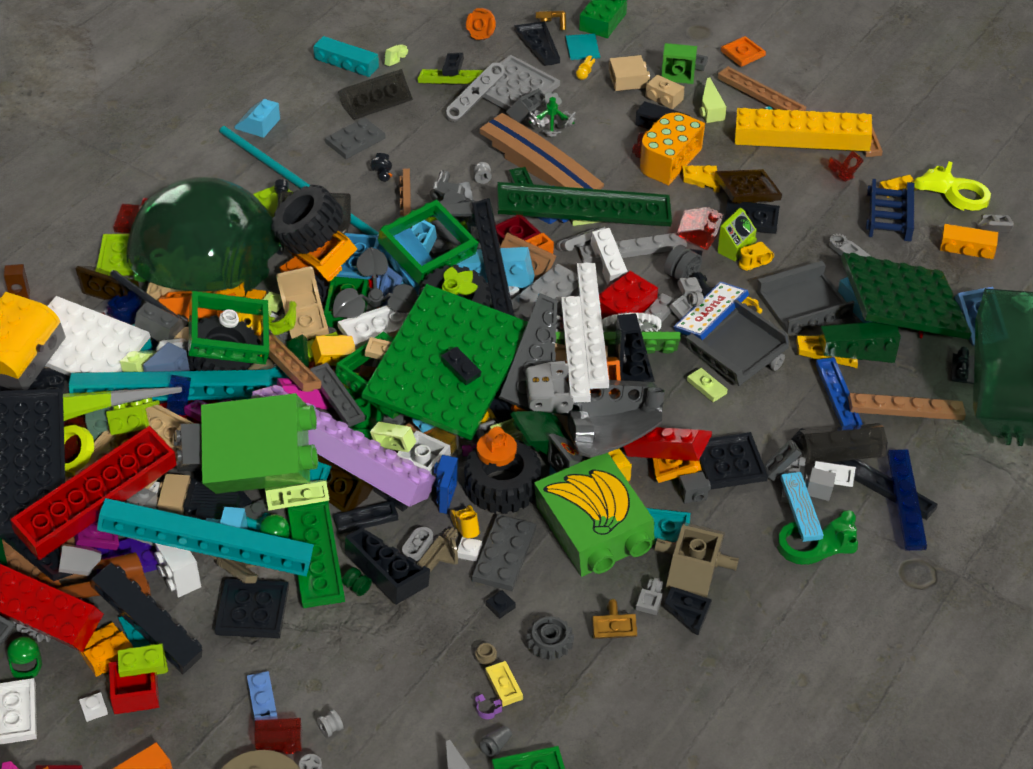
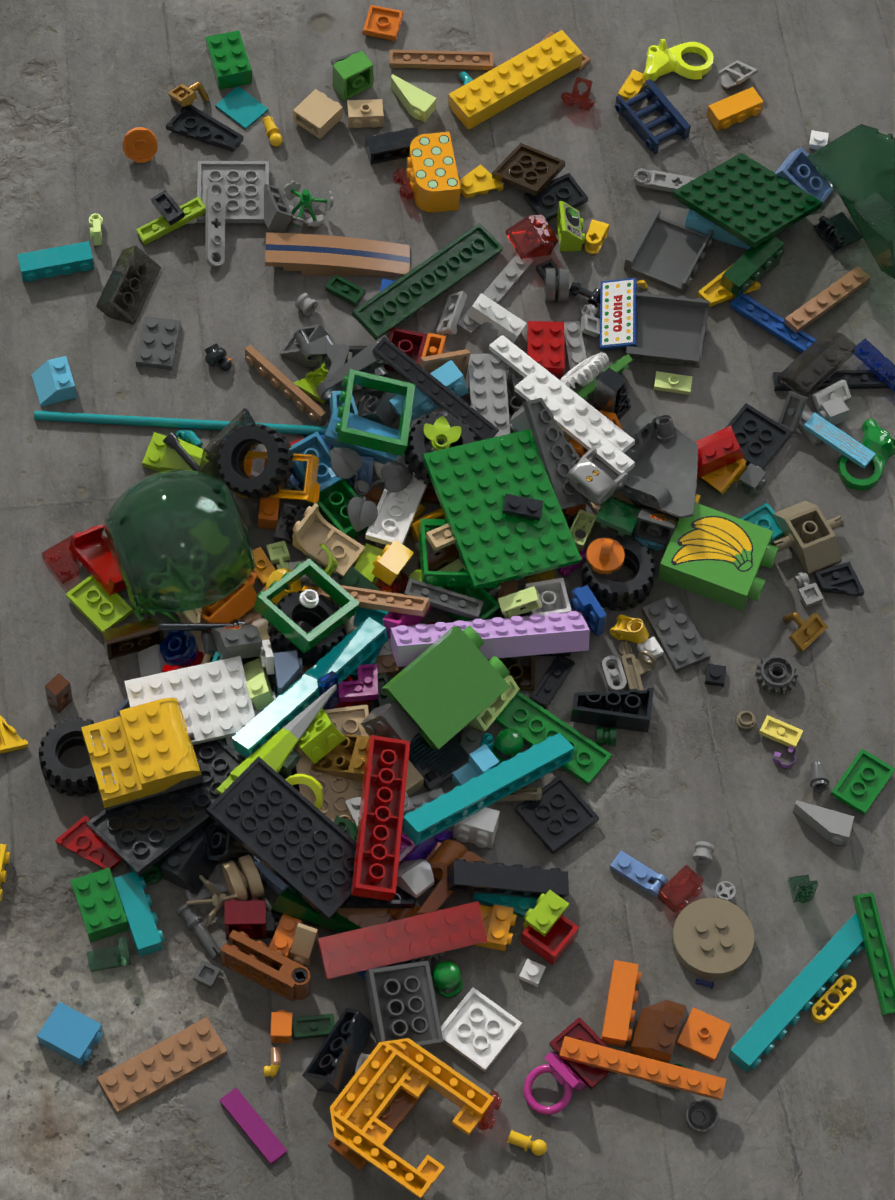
camera: 45 degrees left, 15 degrees up
(691, 288) = (587, 304): light grey plate -> none

